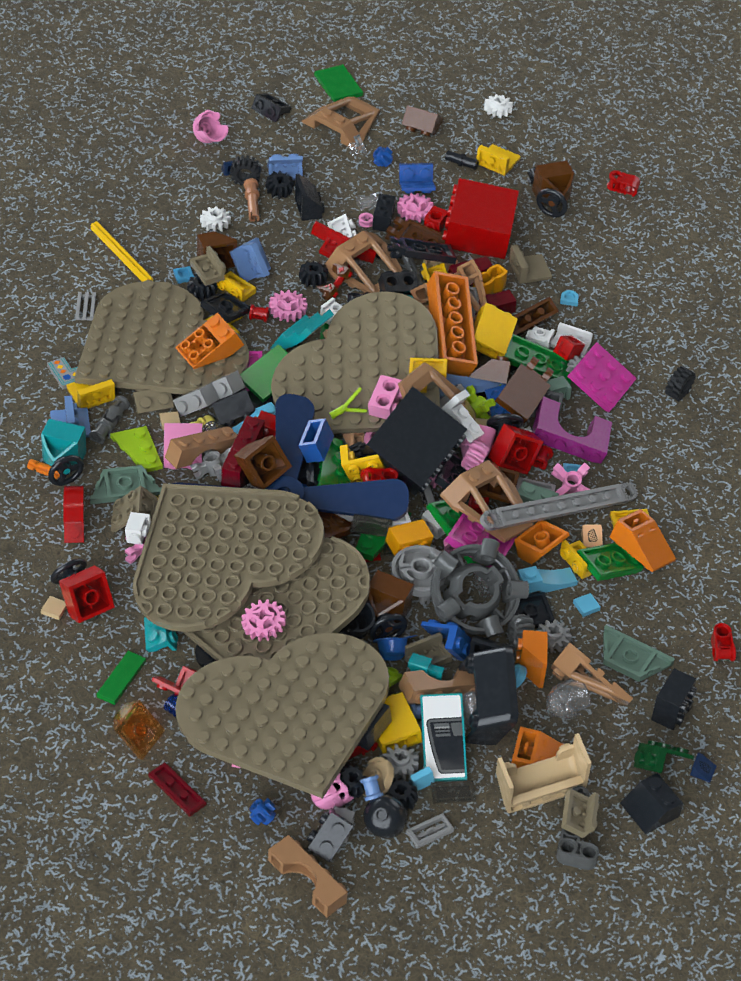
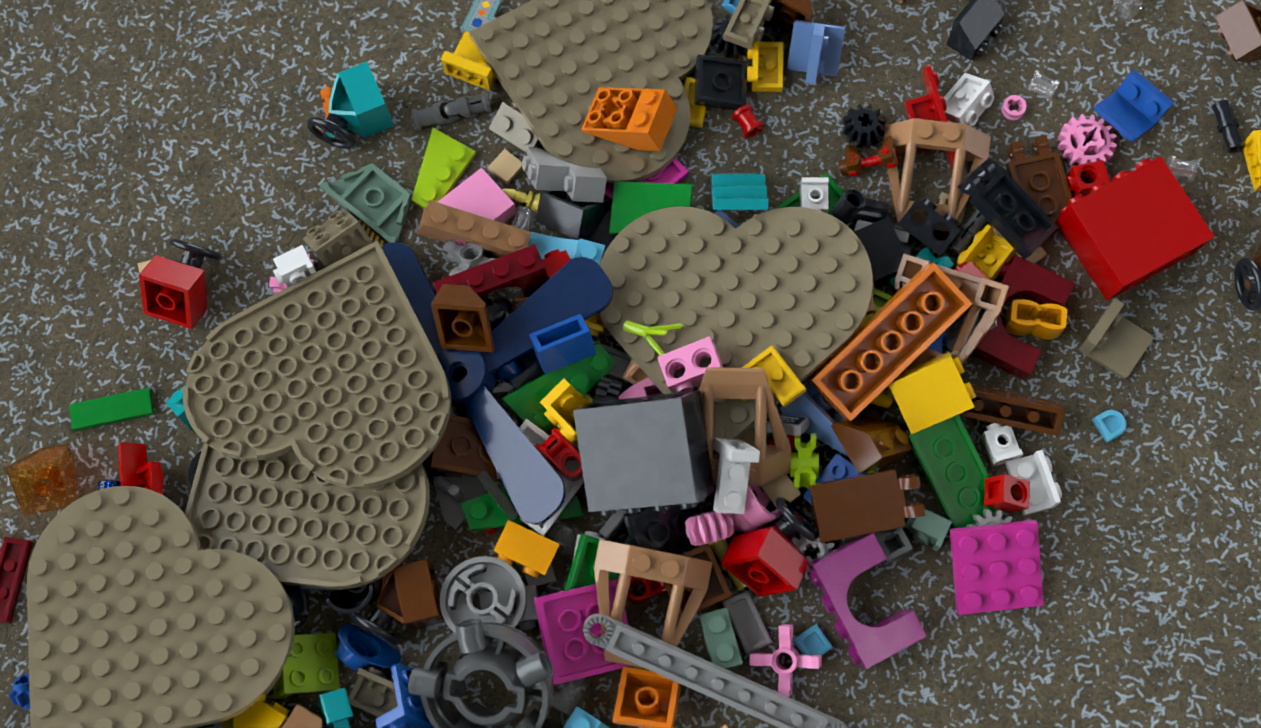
camera: 60 degrees right, 25 degrees up
(72, 415) = (416, 78): medium blue bracket -> none
(73, 514) = (285, 179): red arch -> none
(263, 620) = (256, 498): bright pink gear -> none
(287, 305) = (787, 150): bright pink gear -> none
(382, 156) = (1136, 41): blue gear -> none
(383, 212) = (1040, 117): black brick -> none
(542, 457) = (804, 594): red bush -> none
(680, 383) = (1075, 669): black tyre -> none

